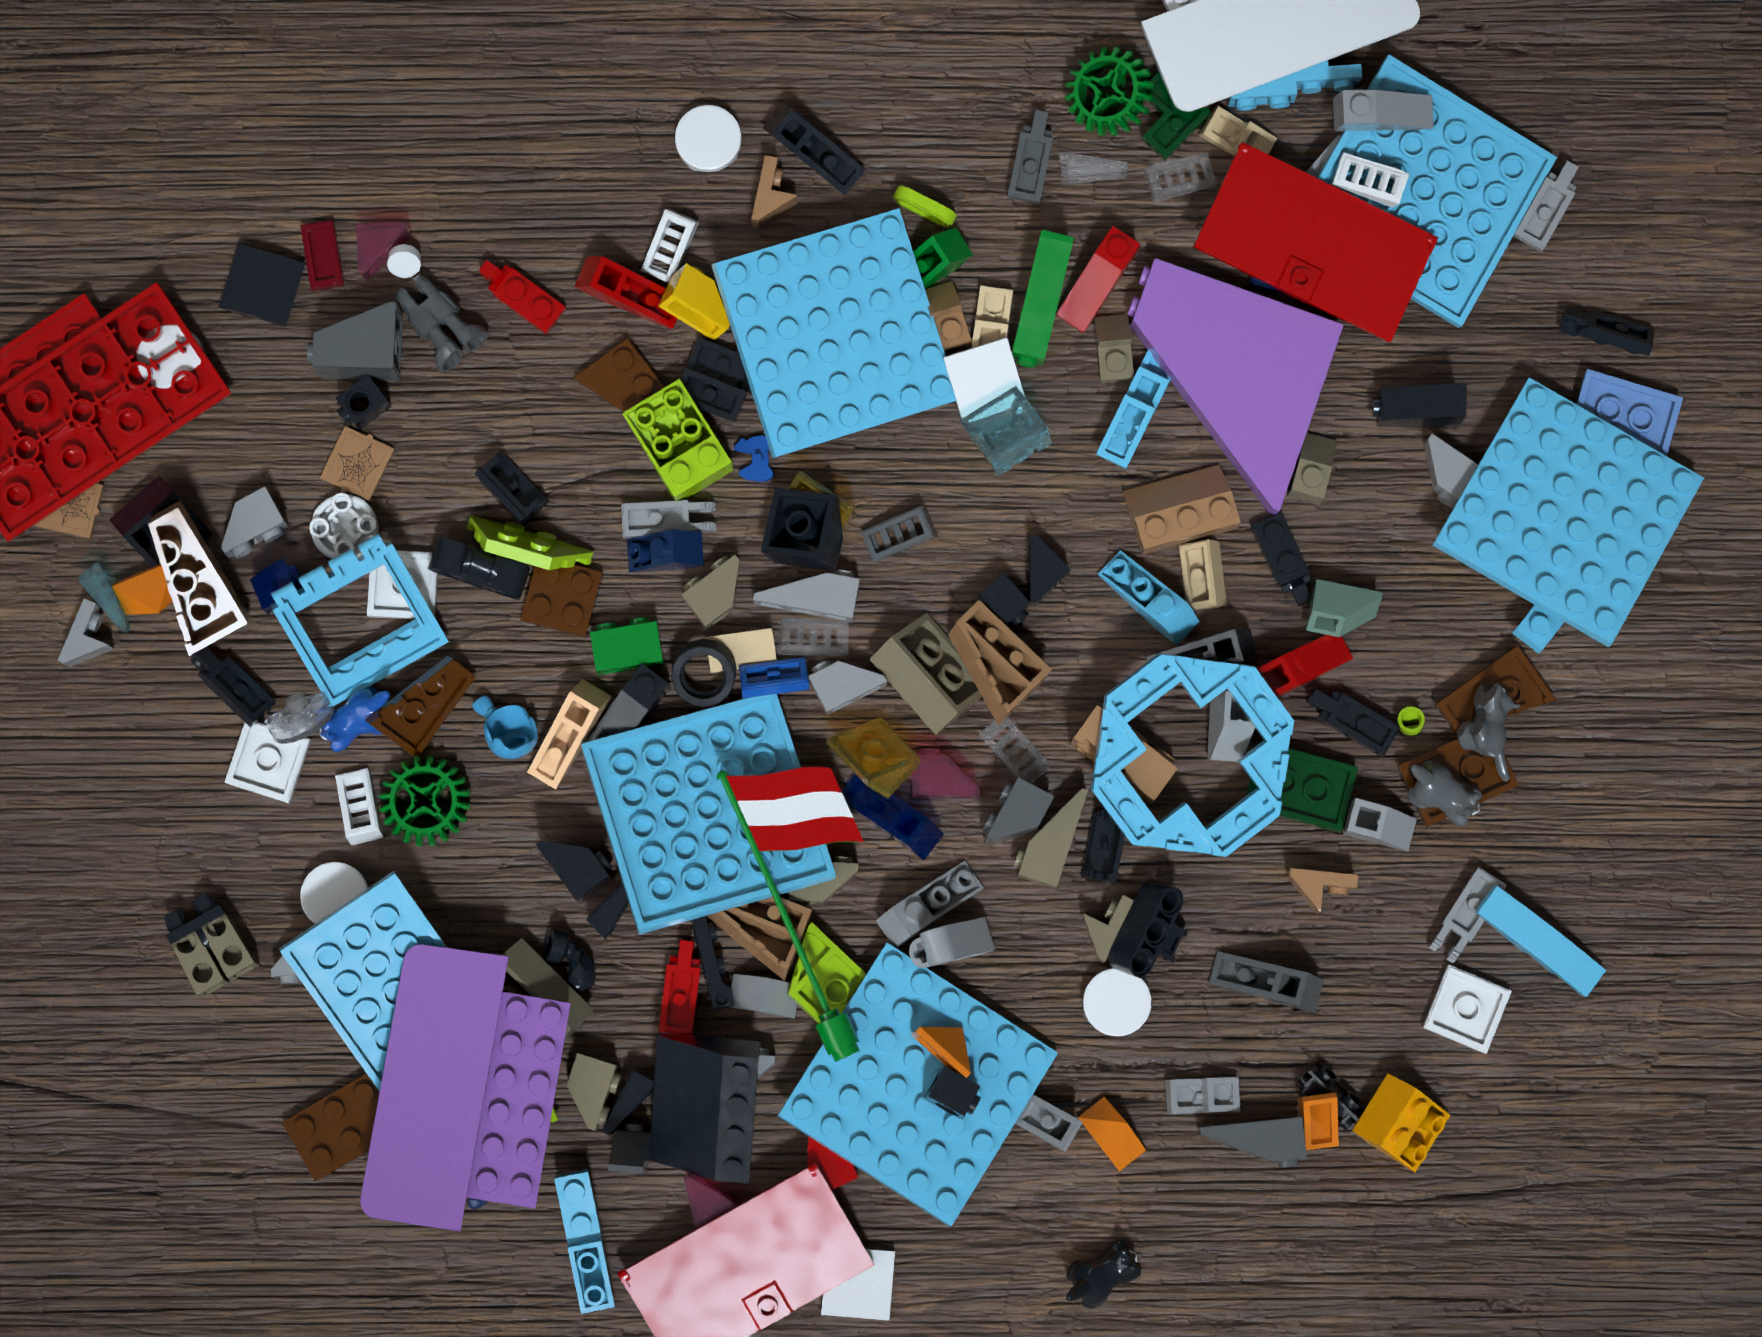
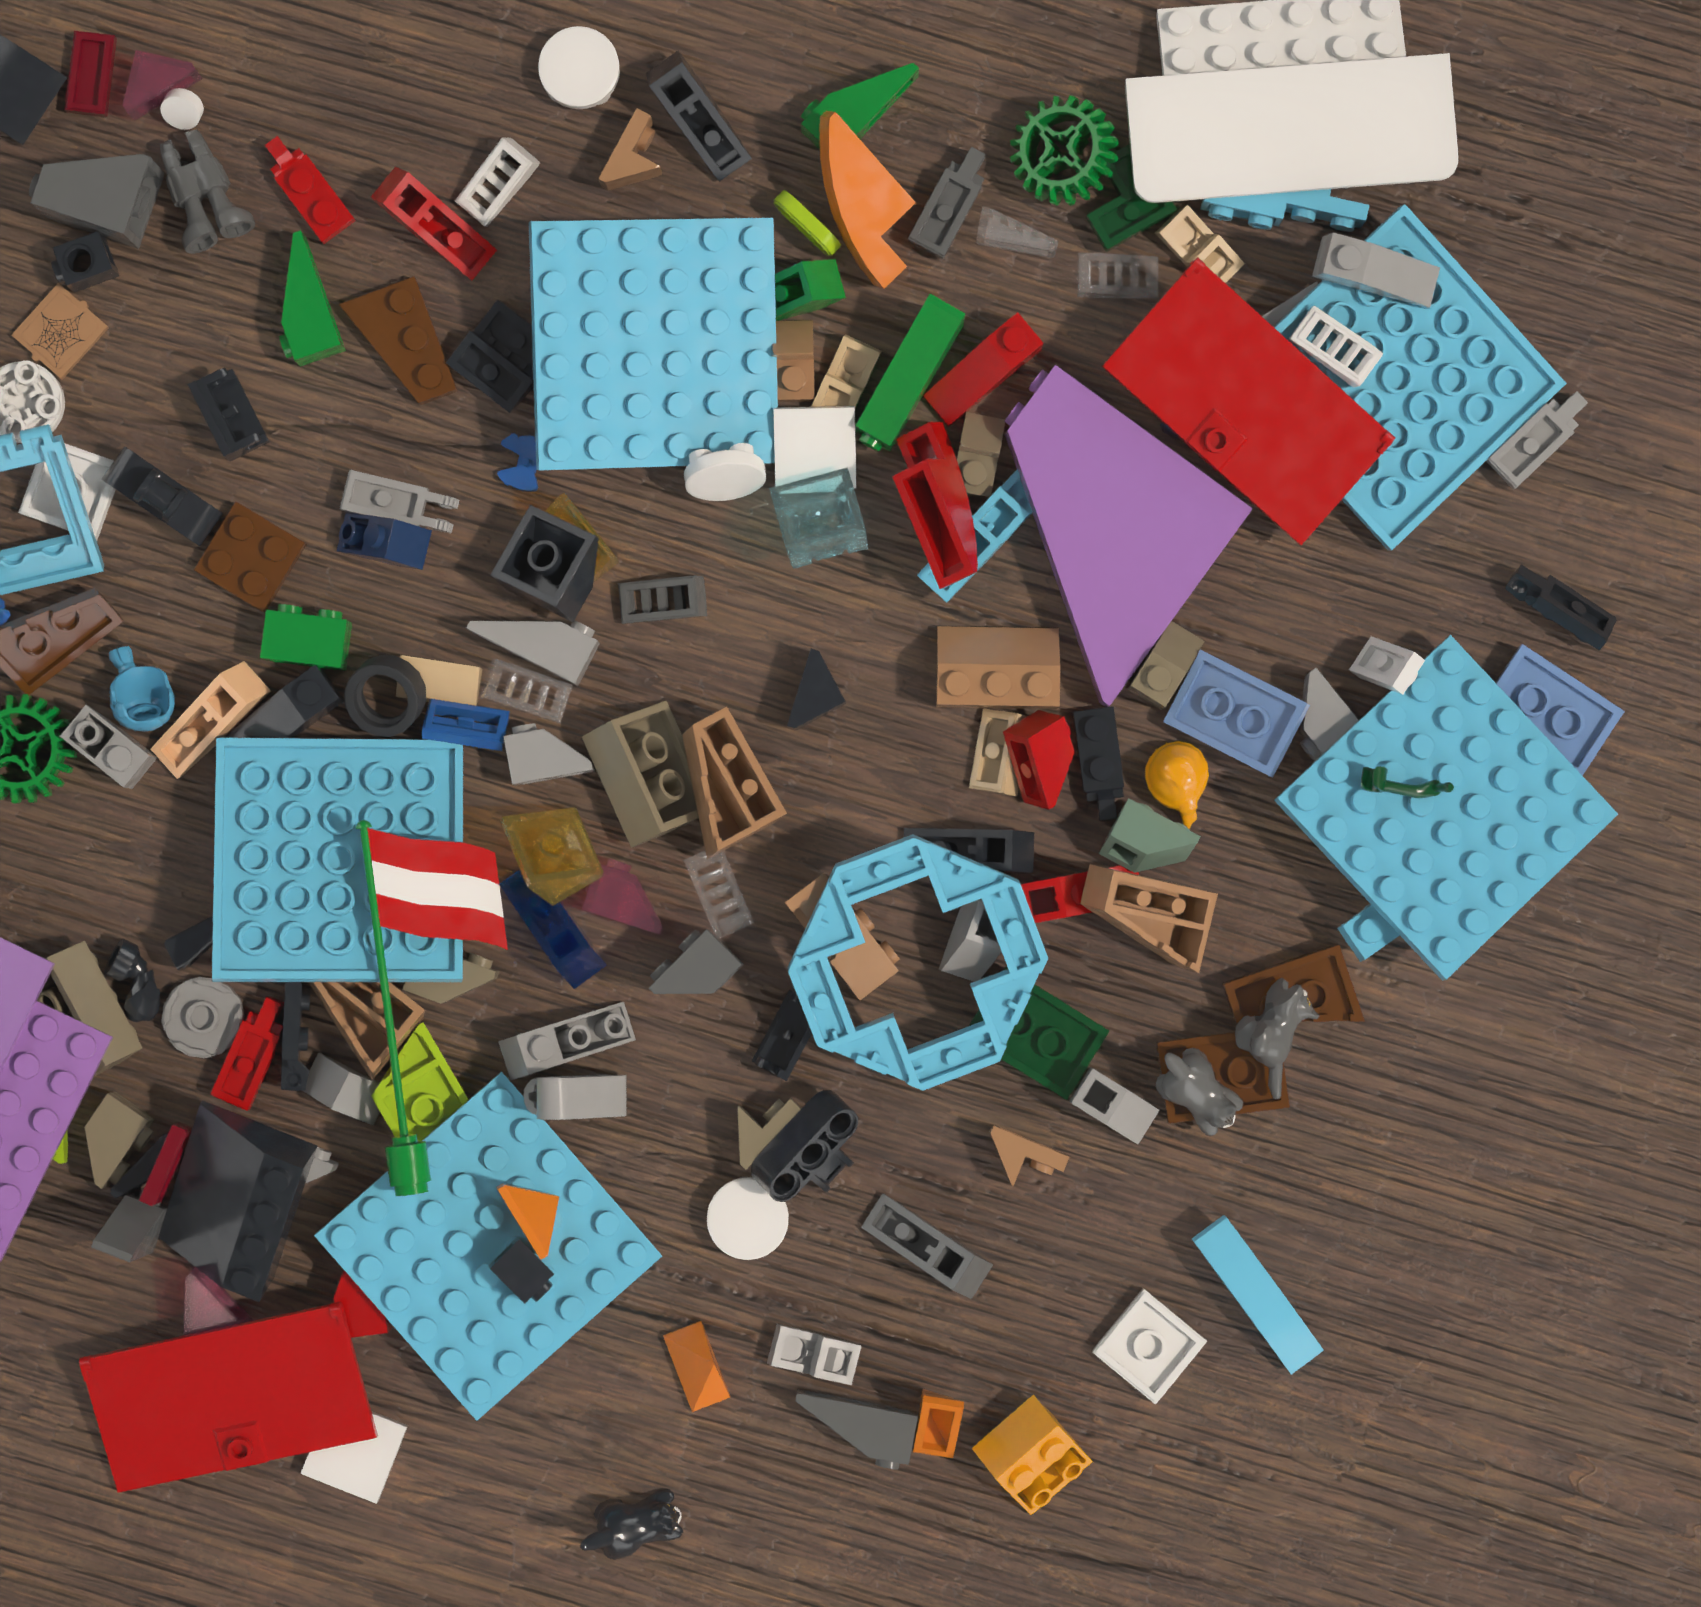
camera: 20 degrees right, 5 degrees up
(495, 778) = (108, 747): none -> light grey slope
(526, 547) = (222, 488): lime wing -> none
(552, 393) = (306, 313): none -> green slope
(577, 868) = (169, 881): black slope -> none
(584, 1241) = (56, 1310): medium azure slope -> none
(632, 972) = (202, 1017): none -> light grey tile
(643, 1092) = (166, 1164): none -> dark red tile
(678, 441) = (435, 416): lime slope -> none
(695, 301) = (503, 256): yellow slope -> none
(715, 594) = (427, 607): dark tan slope -> none
(920, 419) = (724, 473): none -> white tile
(932, 110) = (860, 103): none -> green slope
(963, 174) = (861, 199): none -> orange slope
(1005, 601) = (759, 717): black brick -> none
(1048, 849) = (721, 1020): dark tan slope -> none
(1049, 1123) = (626, 1335): light grey slope -> none
(1096, 392) = (937, 503): none -> red slope
(1149, 597) = (928, 760): medium azure slope -> none
(1237, 568) = (1040, 756): none -> red slope
(1324, 1082) = (957, 1381): black hinge -> none
(1350, 553) = (1177, 778): none -> light orange hat
(1355, 720) = (1123, 975): black hinge -> none
(1365, 662) = (1154, 912): none -> medium nougat wedge
(1380, 488) = (1236, 713): none -> medium blue plate
(1411, 715) = (1188, 987): lime hinge -> none
(1421, 406) = (1313, 631): black slope -> none
(1462, 916) = (1176, 1237): light grey hinge -> none
(1488, 415) = (1387, 665): none -> white plate
(1507, 505) = (1375, 781): none -> dark green piece

